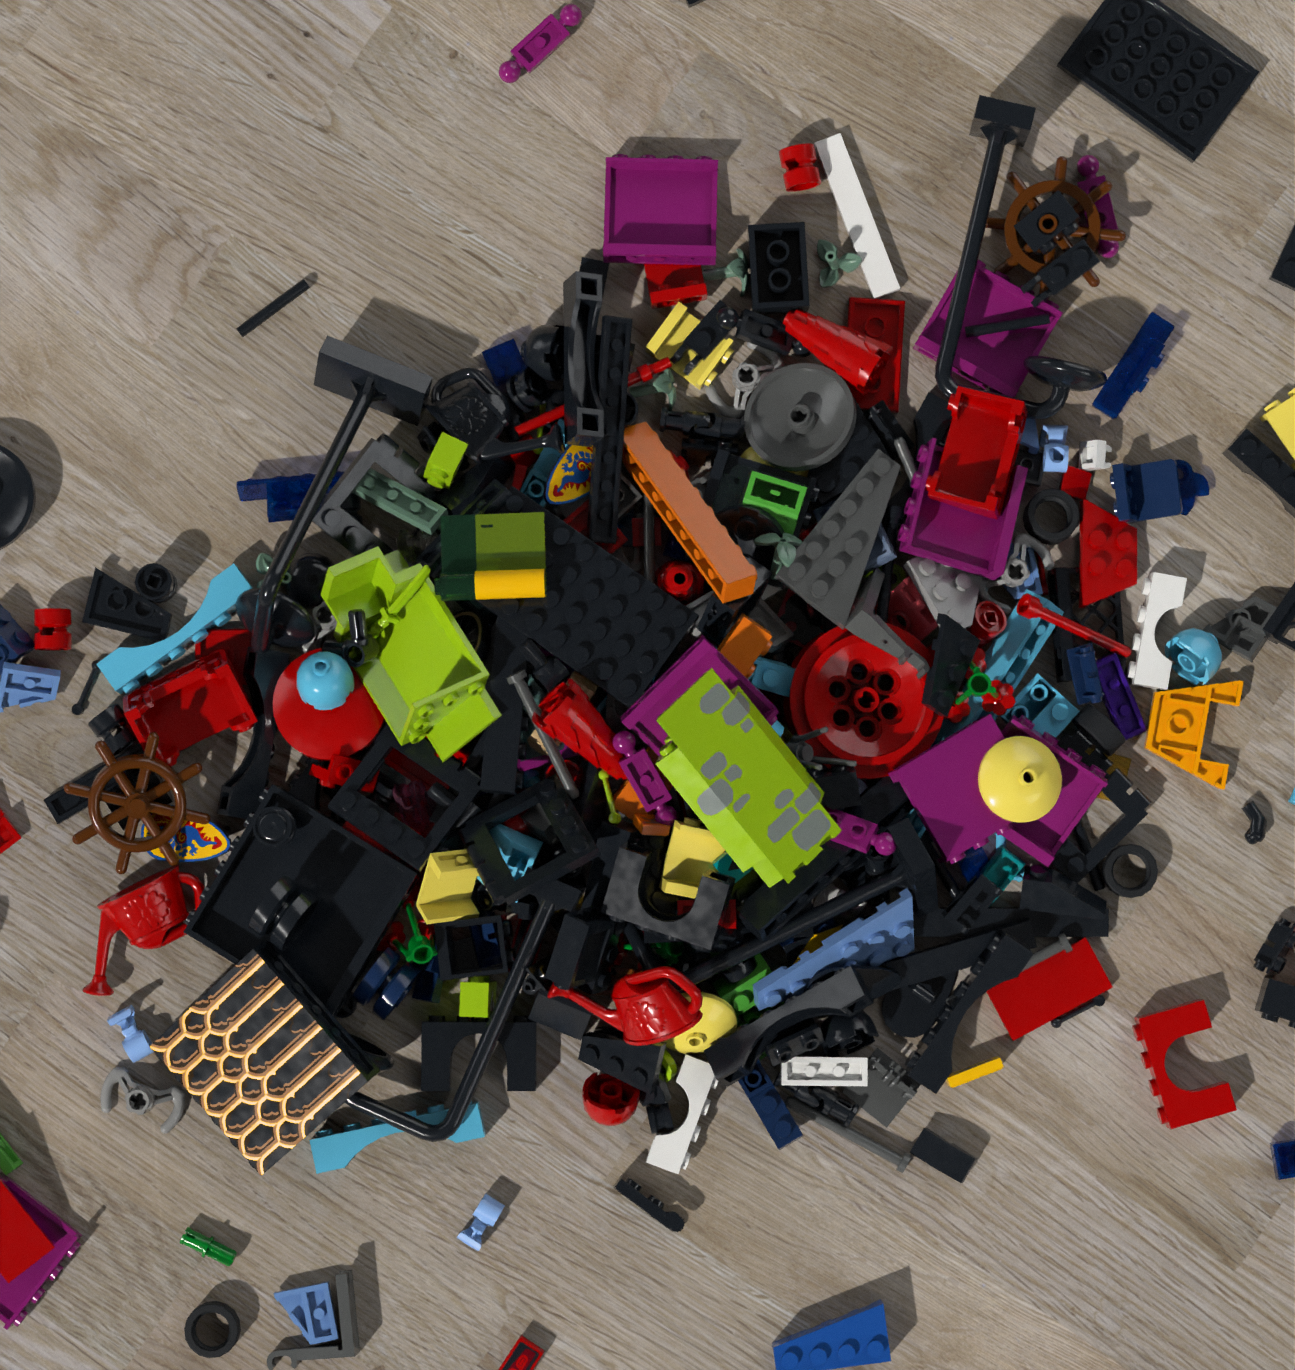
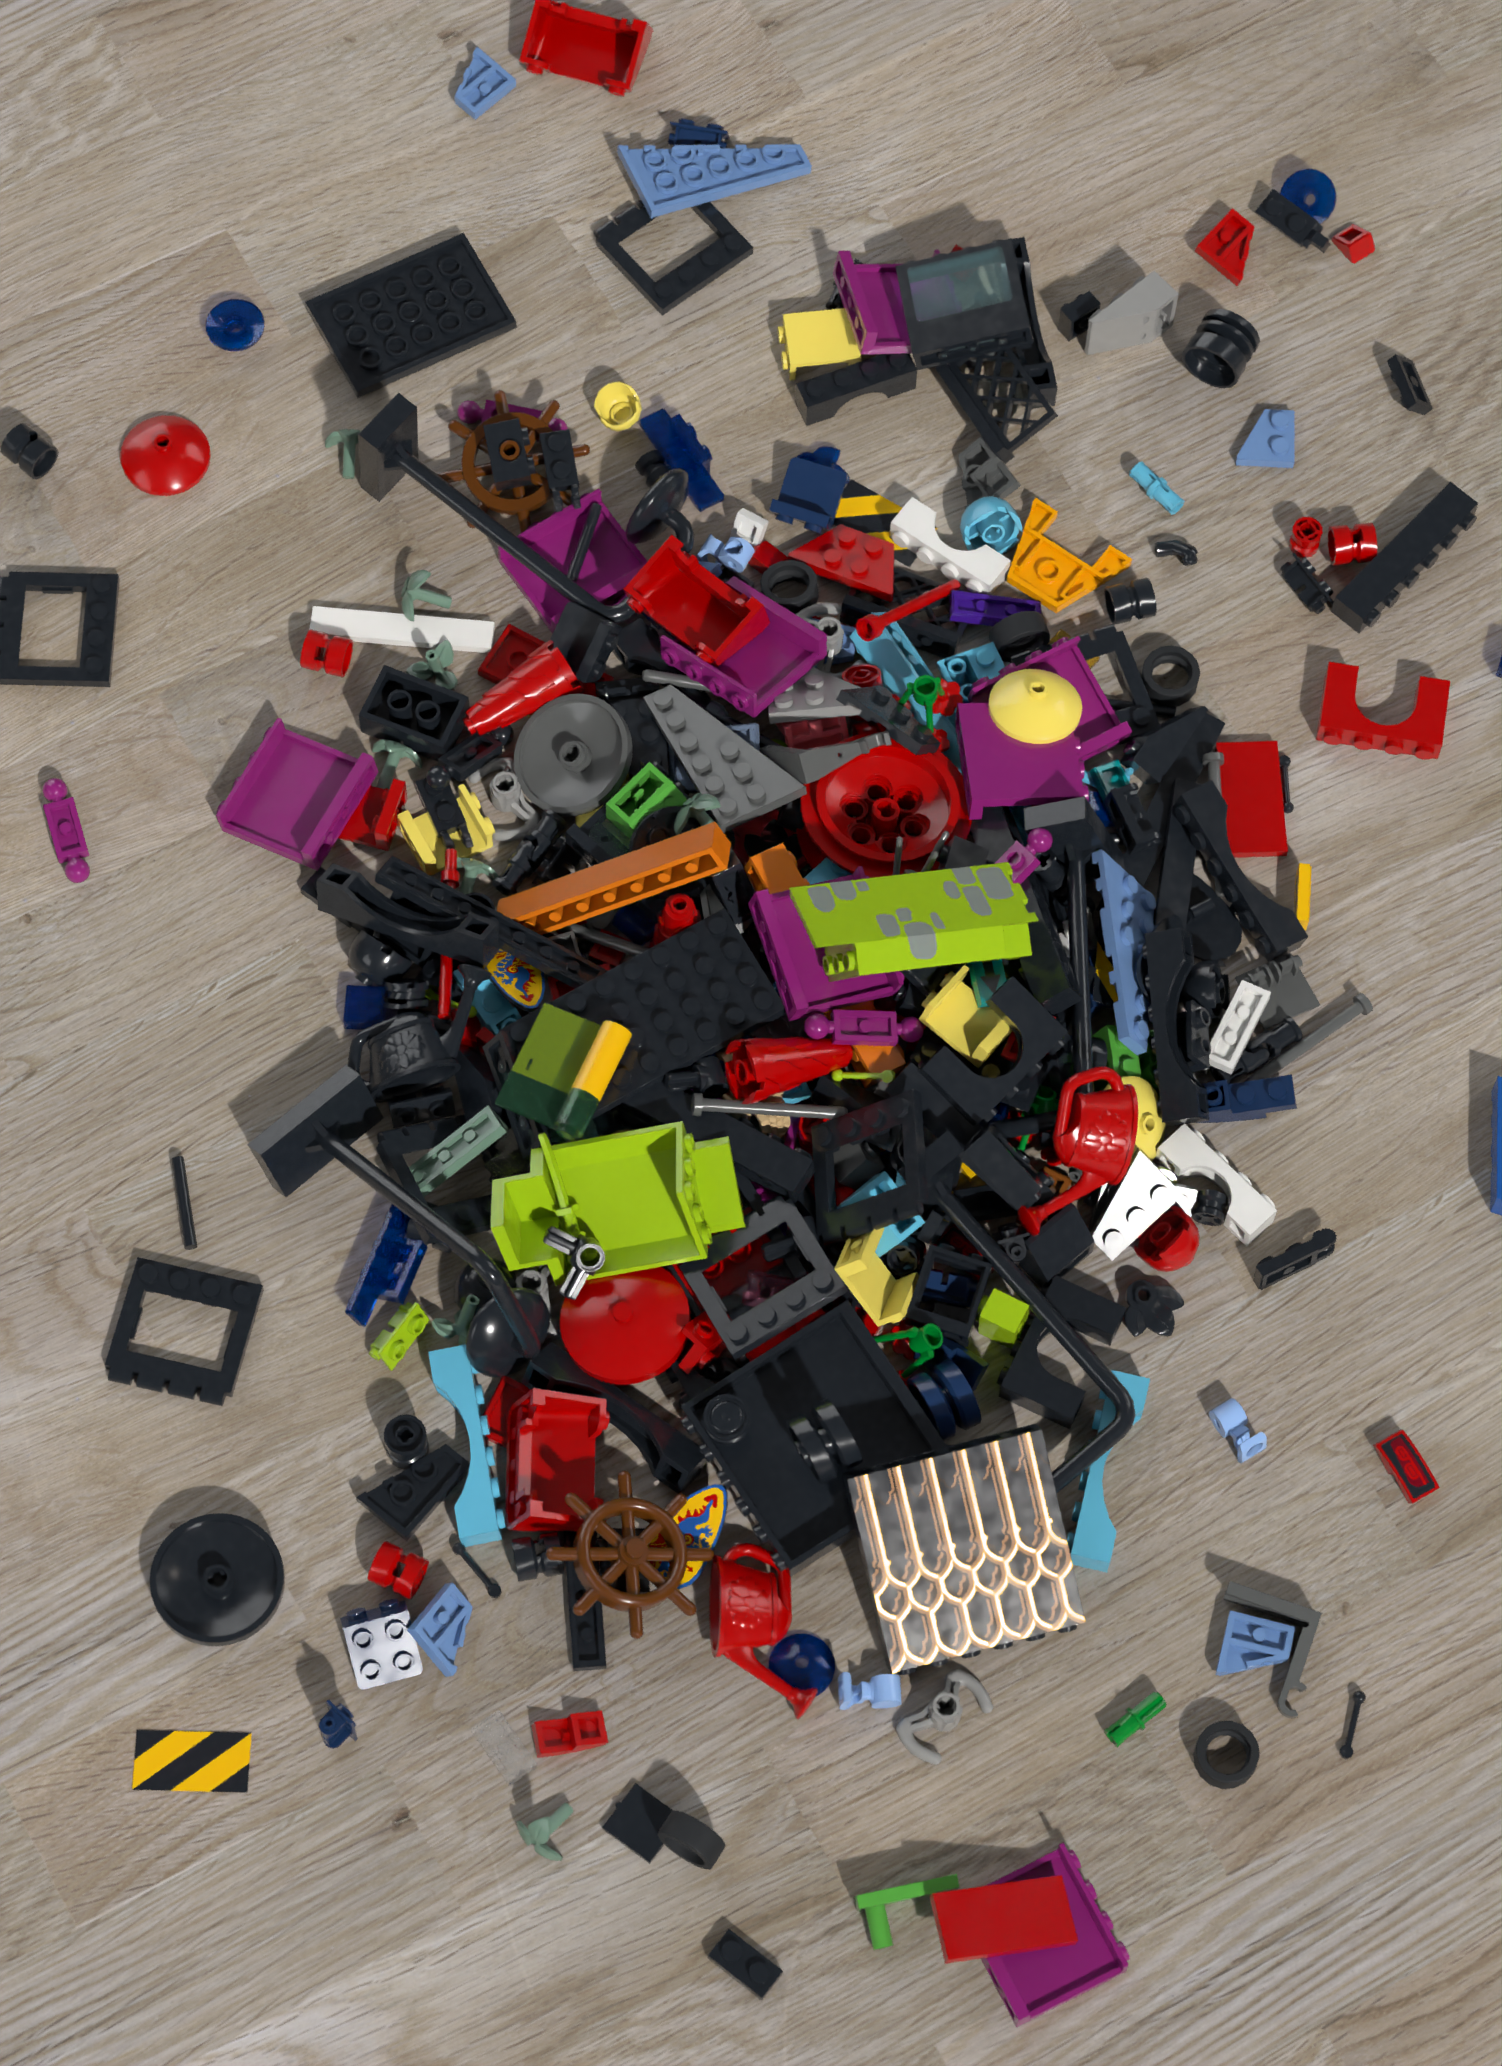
camera: 65 degrees left, 20 degrees down
(145, 967) = (820, 1662): none -> clear blue dish
(206, 354) = (184, 1285): none -> black hinge
(231, 531) = (407, 1325): none -> lime hinge
(324, 680) = (600, 1302): medium azure cylinder -> none
(445, 461) = (438, 1087): lime brick -> none
(551, 1112) = (1154, 1312): none -> black plate
(649, 826) = (912, 1047): orange tile -> none
(893, 209) = (412, 591): none -> sand green plant
(909, 374) = (585, 641): none -> black bracket
(943, 1155) = (1372, 963): black slope -> none
(1007, 81) = (350, 439): none -> sand green plant
(1085, 674) = (948, 615): dark blue hinge -> none
(1109, 349) = (652, 466): none -> black wheel
(1153, 288) = (617, 406): none -> light yellow hair
(1159, 550) = (872, 515): none -> sticker
(1182, 806) = (1130, 601): none -> black wheel

